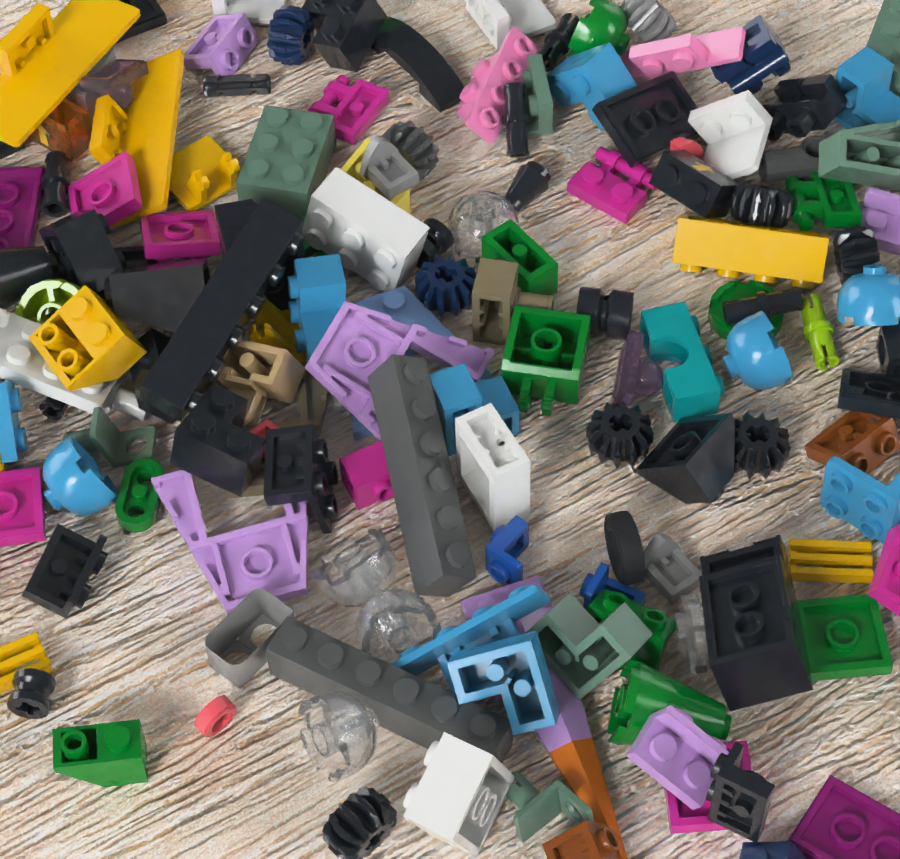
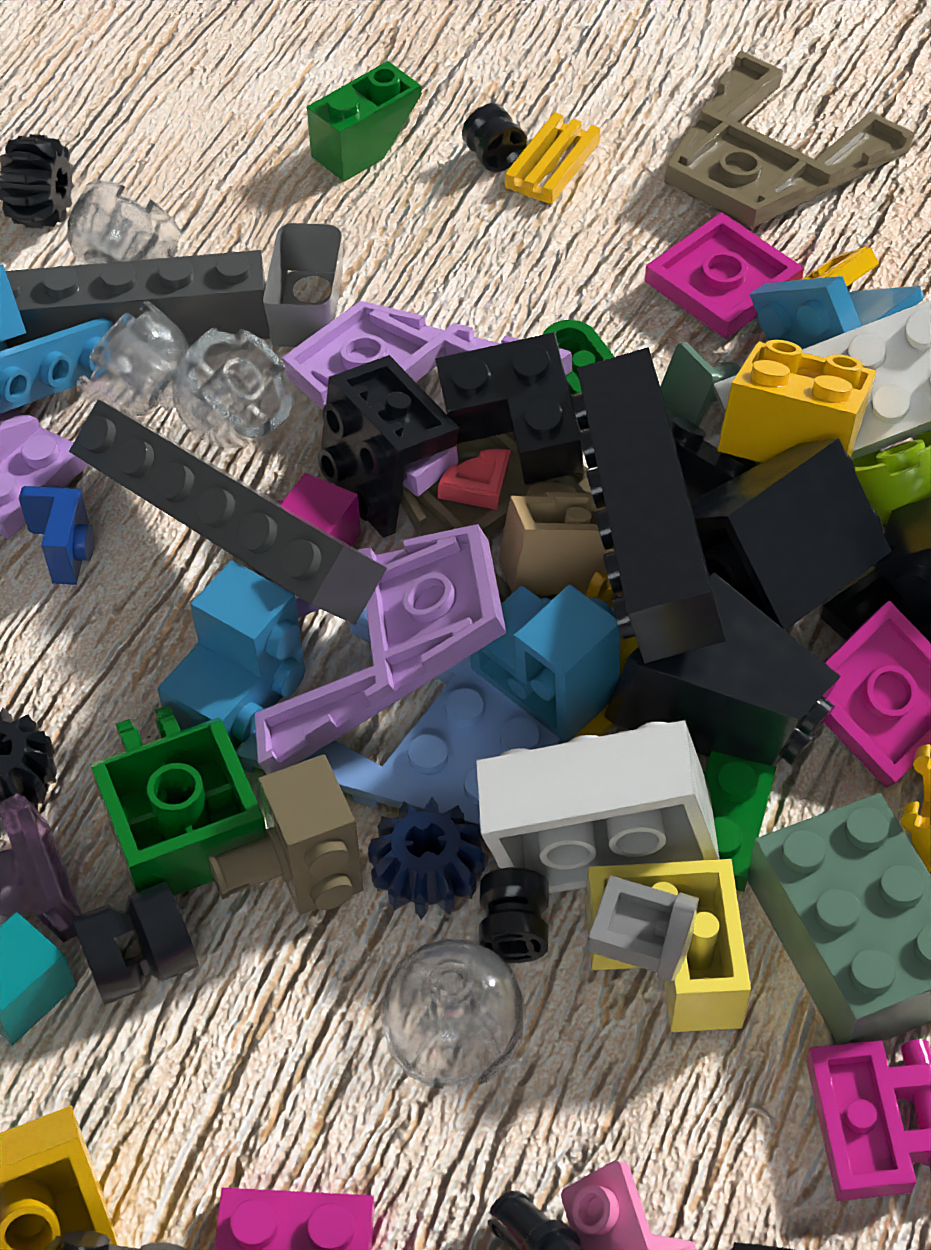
camera: 145 degrees right, 0 degrees up
(63, 571) = (581, 250): black bracket -> none
(76, 480) = (658, 313): dark azure cylinder -> none
(215, 716) = (279, 207): coral tile -> none
(414, 146) = (681, 1049): dark grey gear -> none
(492, 473) = (103, 520): white window -> none
(528, 184) = (438, 1141): black cone -> none
(535, 267) = (325, 938): green brick -> none

